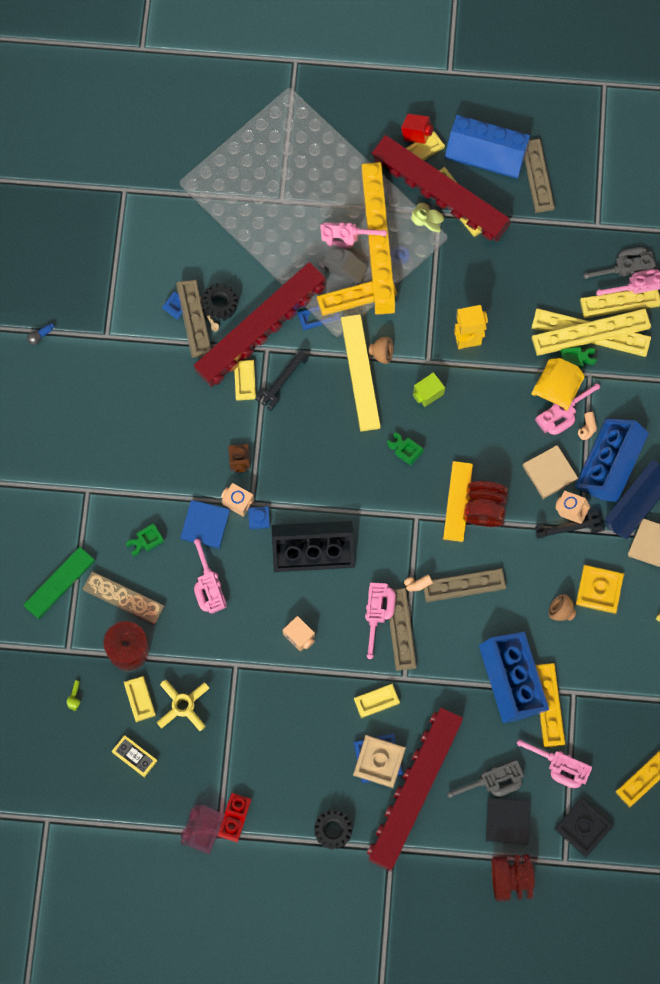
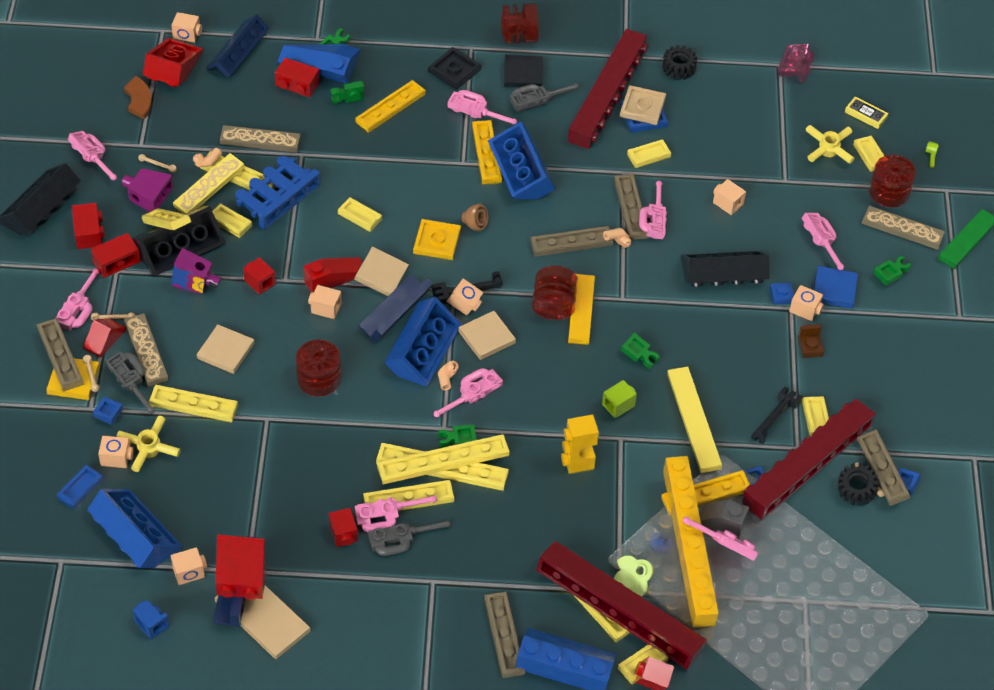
camera: 175 degrees right, 20 degrees down
(234, 817) = (768, 71): red slope -> none
(382, 350) = (672, 439): medium nougat brick -> none
(559, 382) = (481, 404): yellow slope -> none

